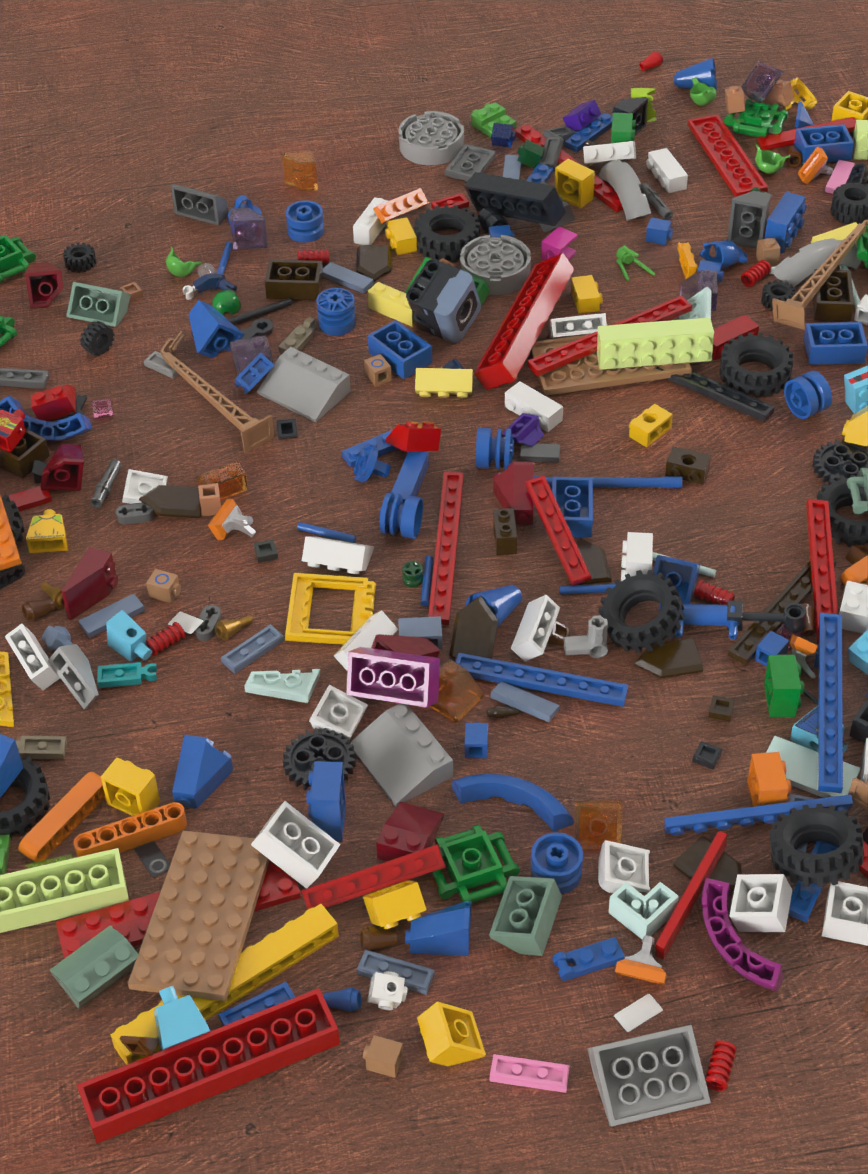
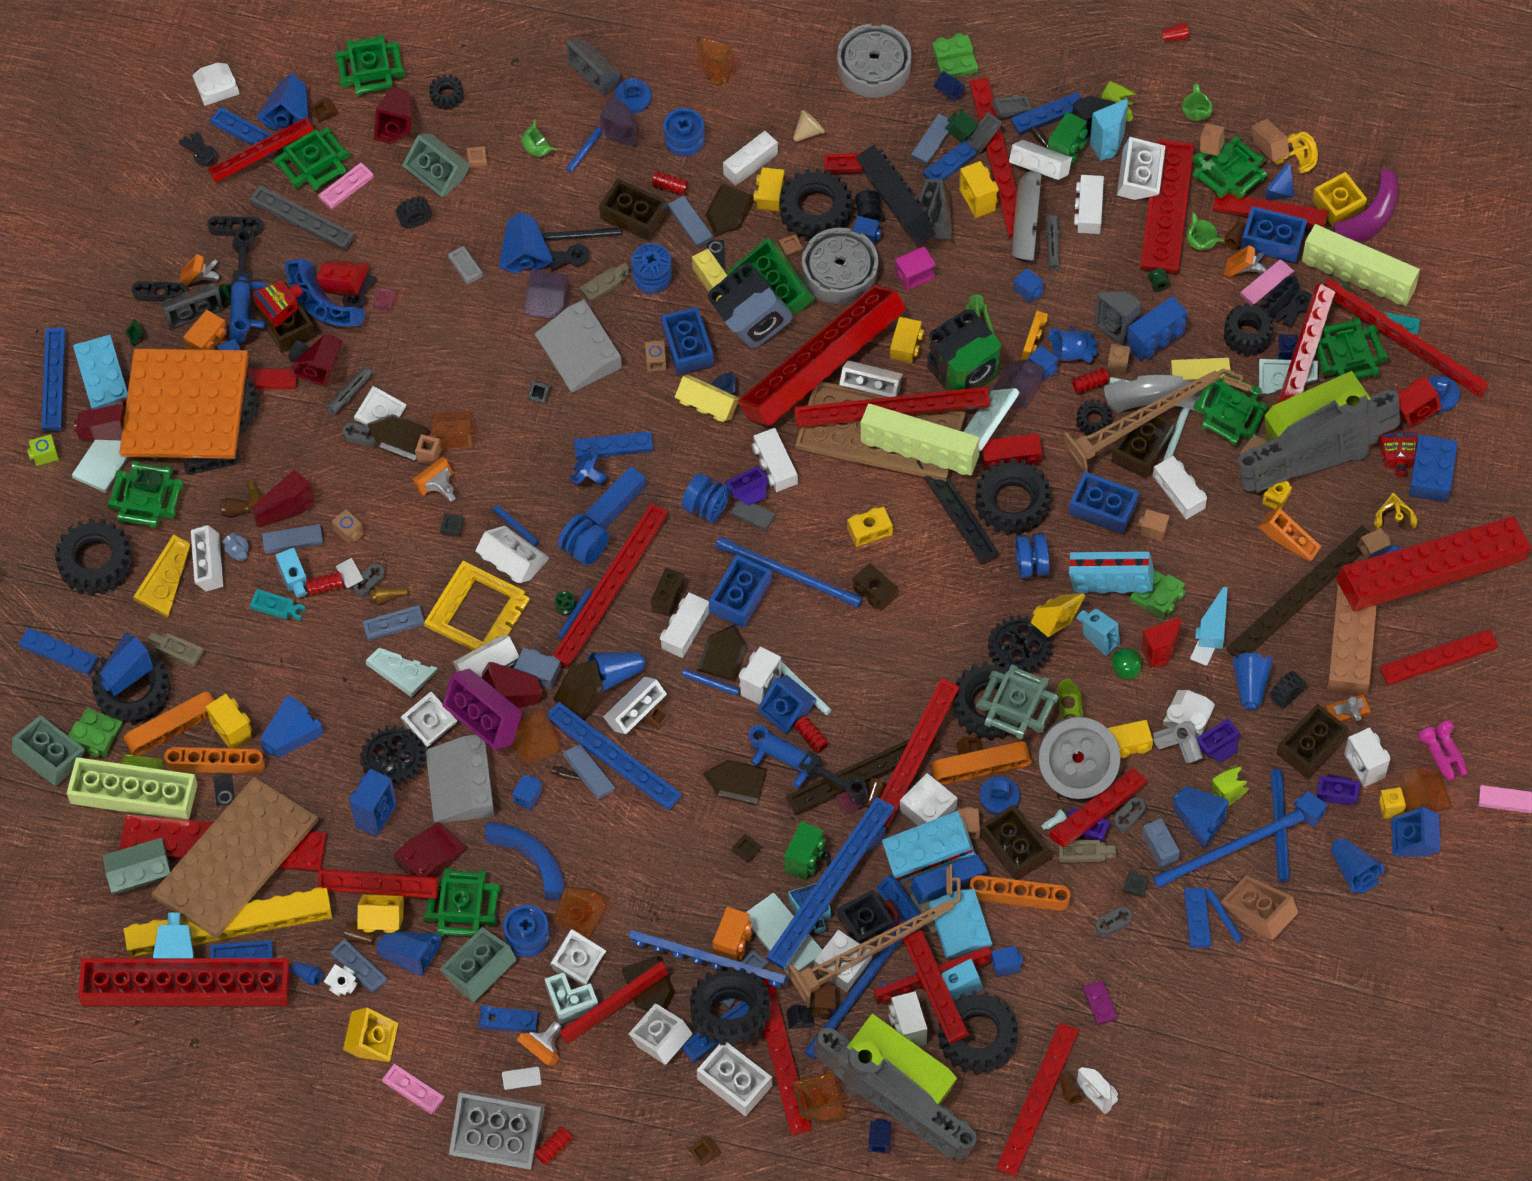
camera: 25 degrees right, 15 degrees up
(21, 345) = (346, 186): none -> bright pink tile
(47, 533) = (275, 427): yellow torso -> none
(75, 672) = (235, 587): light grey slope -> none
(139, 1045) = (139, 946): reddish brown slope -> none
(205, 268) = (558, 161): clear plate -> none
(208, 281) = (552, 177): dark blue arm -> none
(226, 302) = (558, 210): green hair -> none
(252, 430) = (504, 385): medium nougat piece -> none
(253, 373) = (536, 317): blue hinge -> none
(295, 844) = (330, 829): white brick -> none
(383, 1056) = (313, 1030): medium nougat brick -> none
(401, 205) = (787, 150): plate -> none
(405, 185) = (807, 127): none -> tan hat
(415, 436) = (640, 459): red slope -> none
(468, 161) = (895, 112): dark grey plate -> none
(512, 492) = (703, 554): dark red slope -> none
(536, 552) = (684, 625): none -> white brick
(558, 530) = (707, 615): red tile -> none
(582, 115) = (1047, 90): dark purple brick -> none
(593, 643) = (675, 737): light grey piece -> none
(630, 593) = (715, 714): black tyre -> none
(645, 277) = (964, 352): none -> piece
(650, 118) = (1108, 129): none -> medium azure slope
(690, 138) = (1140, 169): none -> white slope
(703, 71) = (1211, 80): blue cone -> none
(707, 755) = (709, 885): black tile -> none
(716, 906) = (618, 1050): magenta brick -> none
(761, 81) = (1249, 129): slope -> none
(771, 645) = (824, 810): blue brick -> none
(800, 649) = (842, 823): piece -> none

